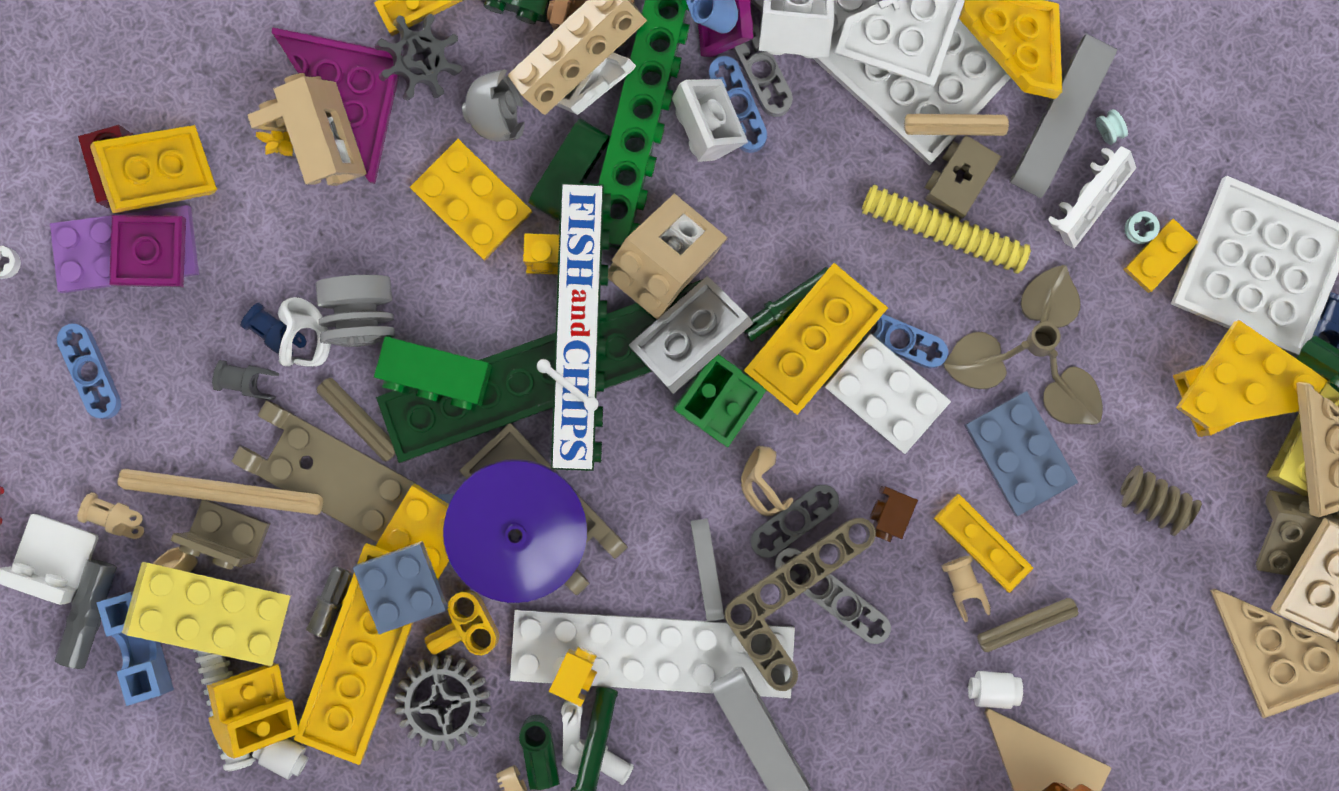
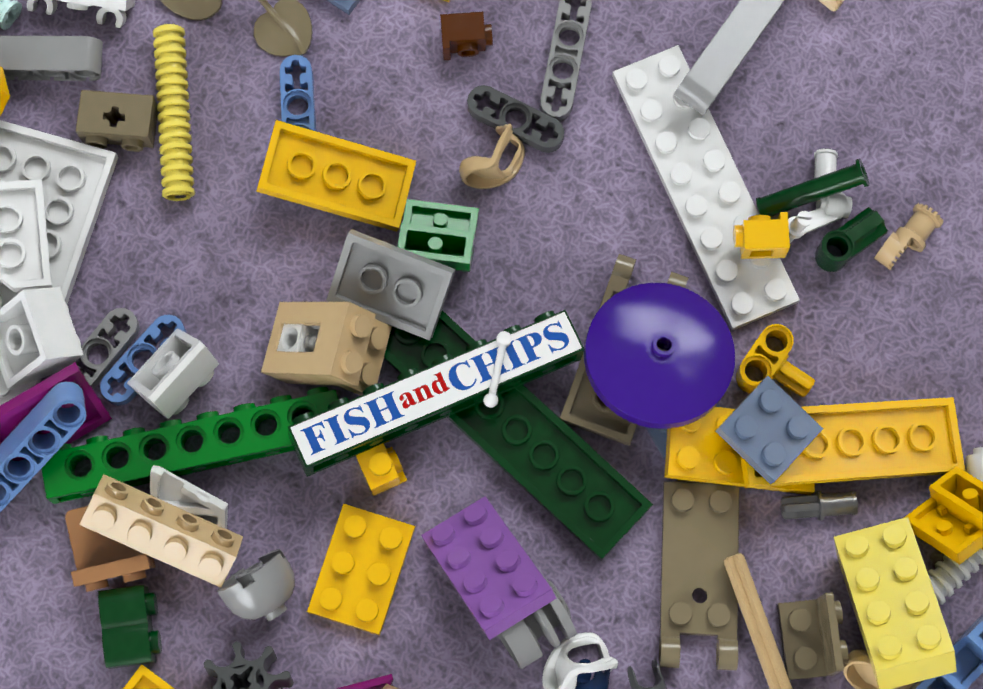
camera: 115 degrees left, 10 degrees down
(356, 418) = (632, 569): dark tan axle -> none
(408, 296) = (488, 567): none -> medium lavender plate
(432, 373) = (550, 509): green brick -> none
(444, 719) = (864, 361): light grey gear -> none
(570, 164) = (284, 484): dark green beam -> none
(707, 569) = (604, 169): light grey beam -> none
(779, 310) = (328, 226): dark green pin -> none
(787, 591) = (584, 85): dark tan beam -> none
(887, 393) = (355, 89): white plate -> none
(956, 124) = (69, 145): tan axle -> none

